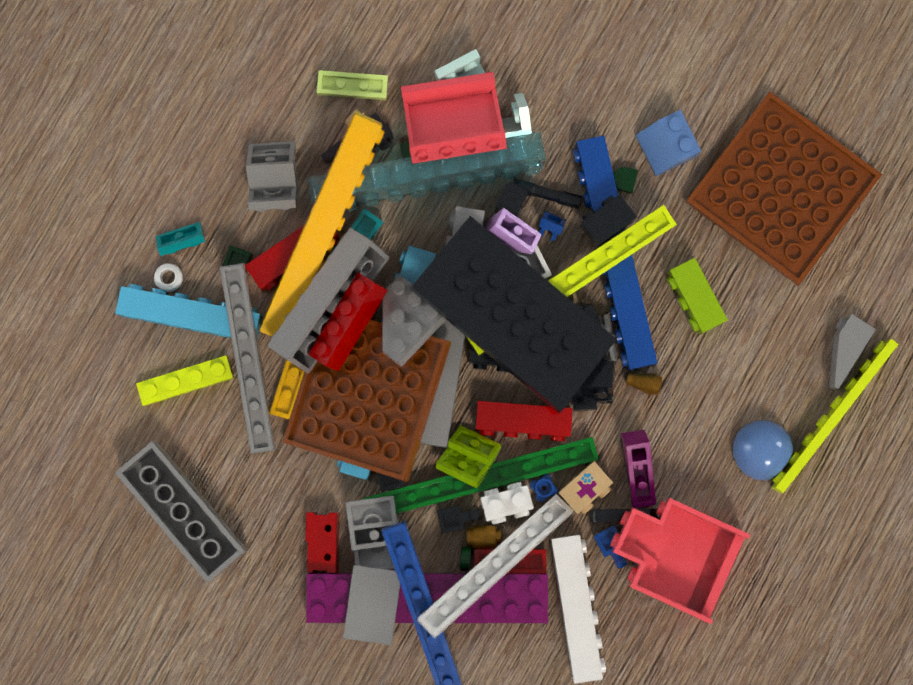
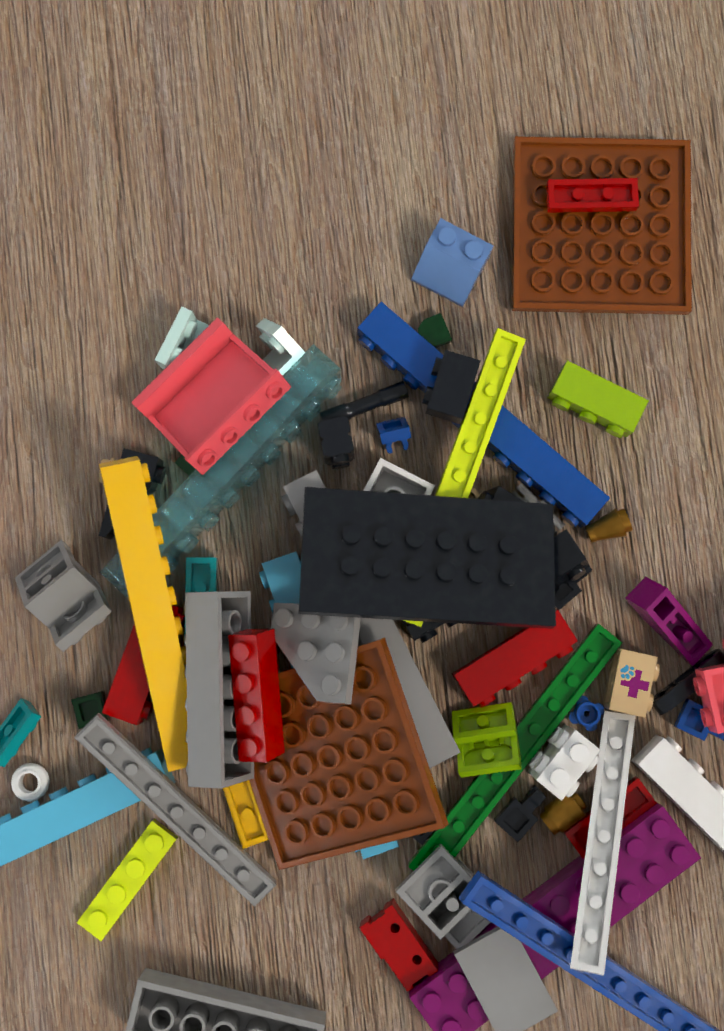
camera: 35 degrees left, 0 degrees up
(352, 85) = (79, 437): yellowish green plate -> none
(465, 558) = (560, 849): dark green tile -> none
(513, 232) = (362, 470): lavender slope -> none
(789, 164) = (592, 195): none -> red plate

